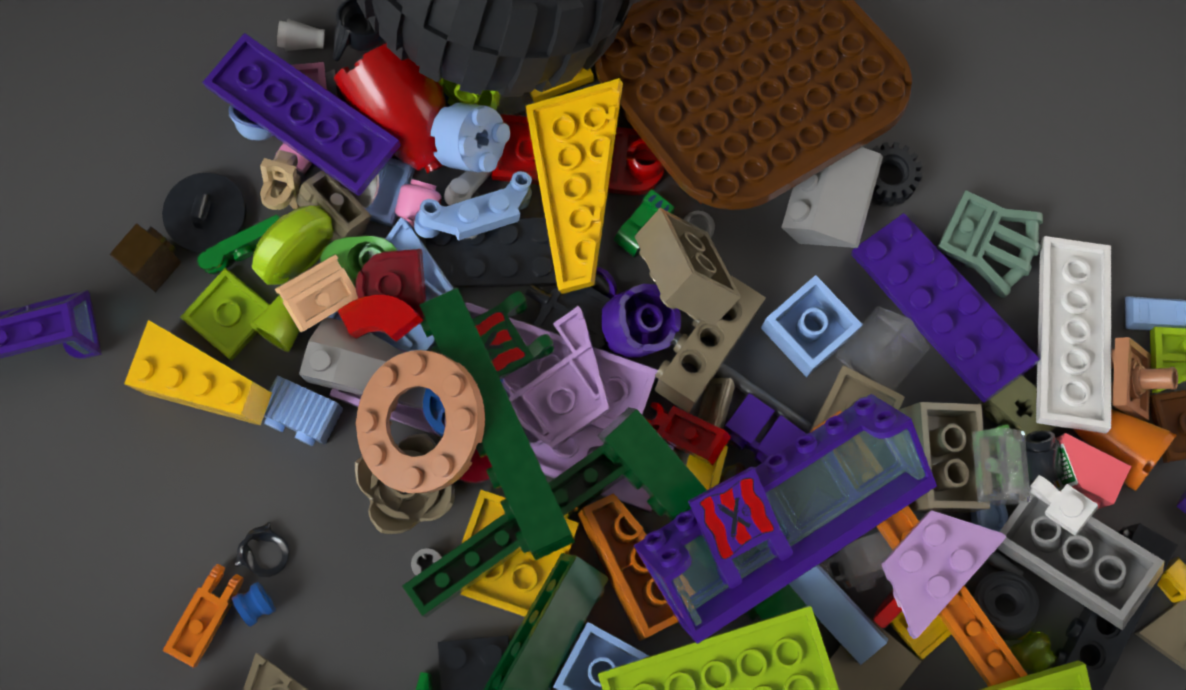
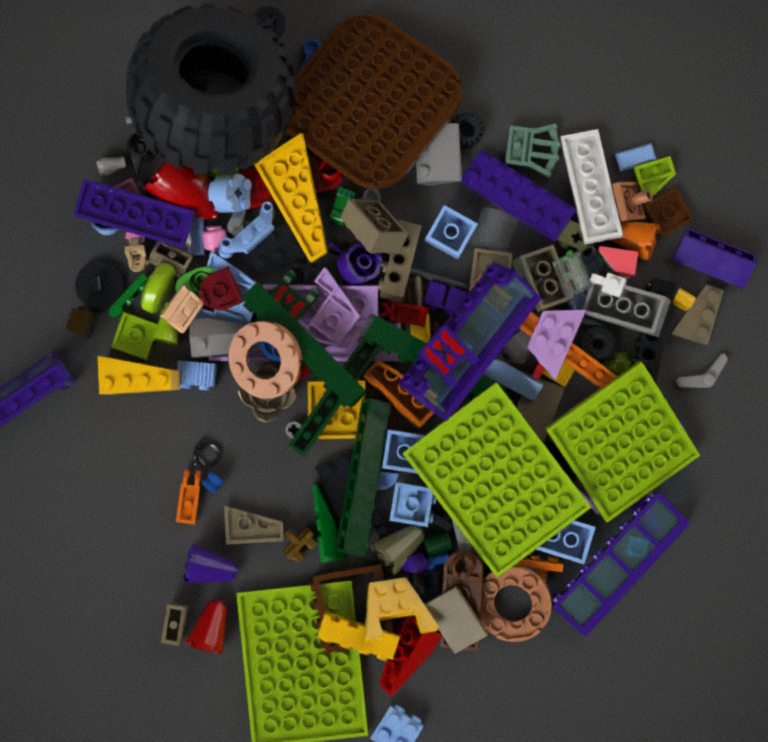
camera: 20 degrees left, 10 degrees up
(379, 314) = (221, 309): red tile -> none

